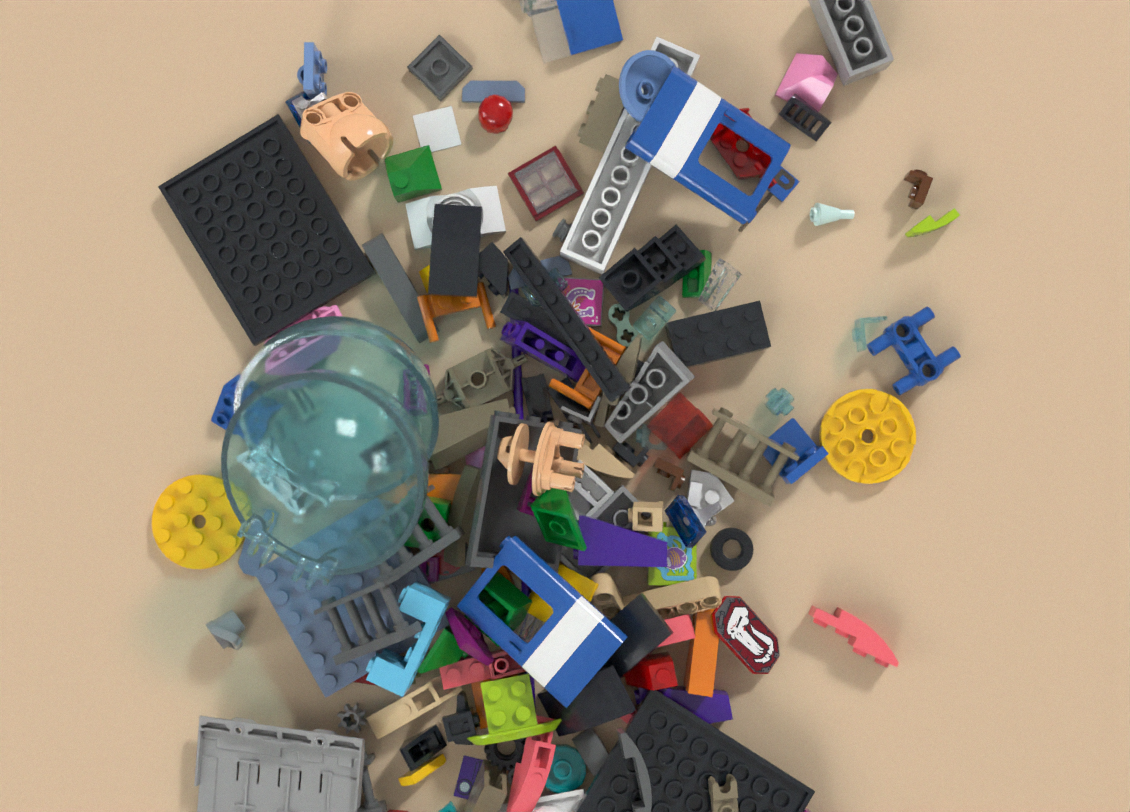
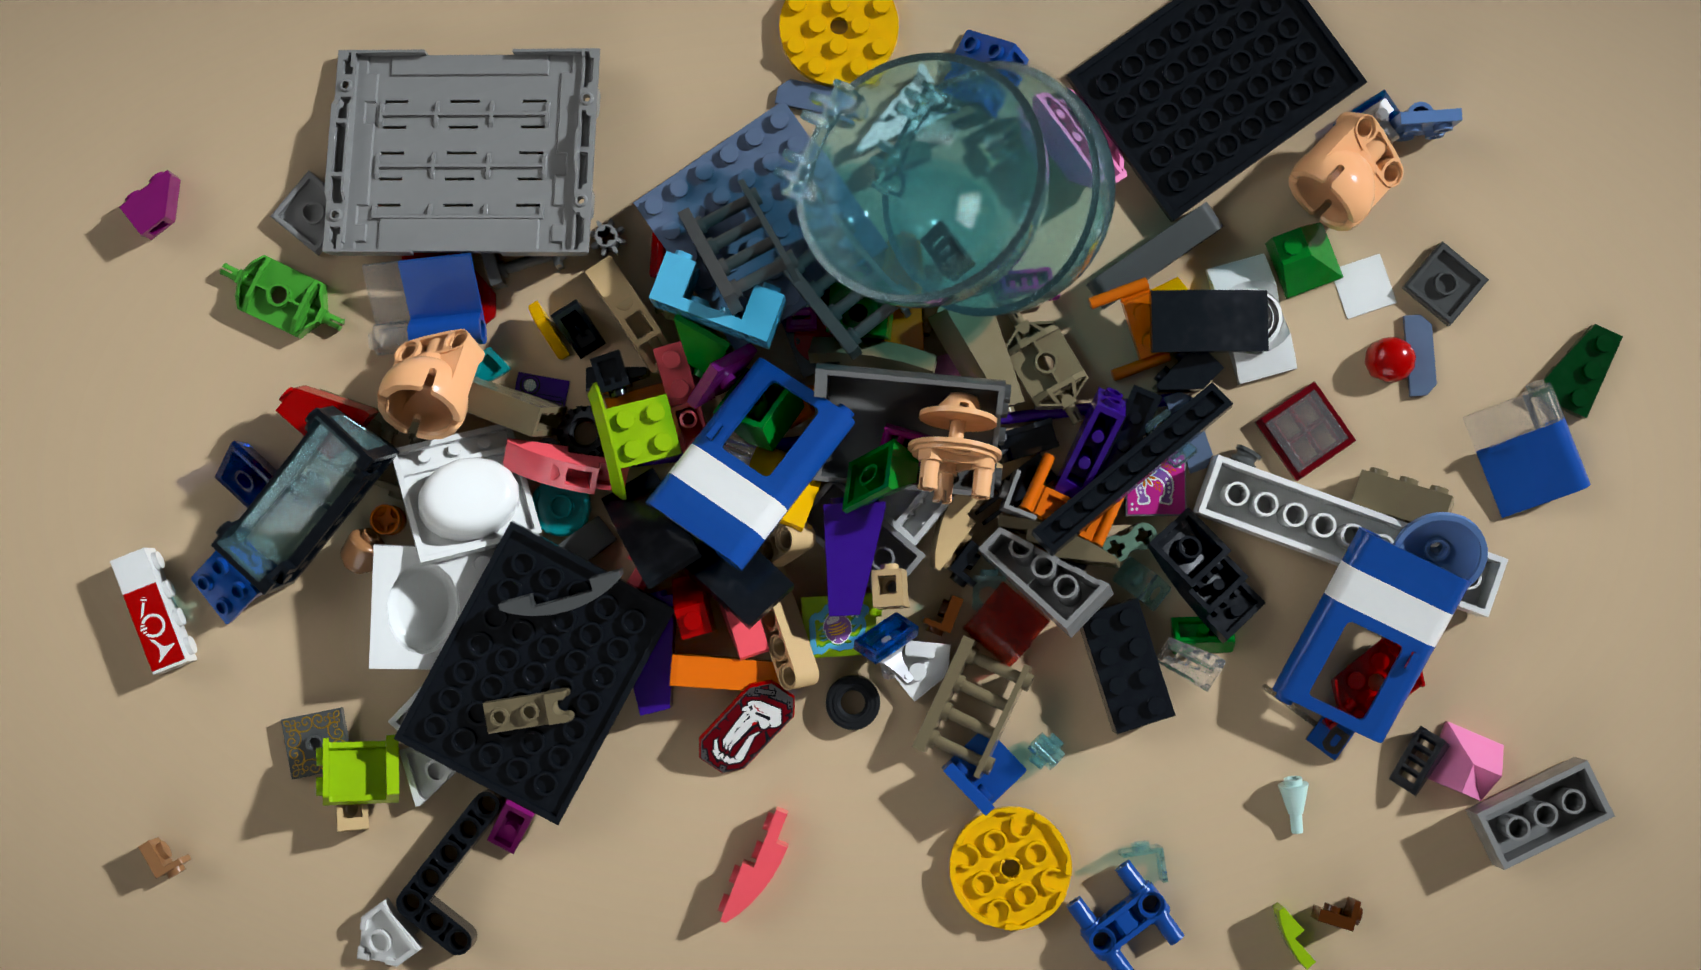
camera: 80 degrees right, 0 degrees up
(226, 630) = (706, 73): light grey piece -> none

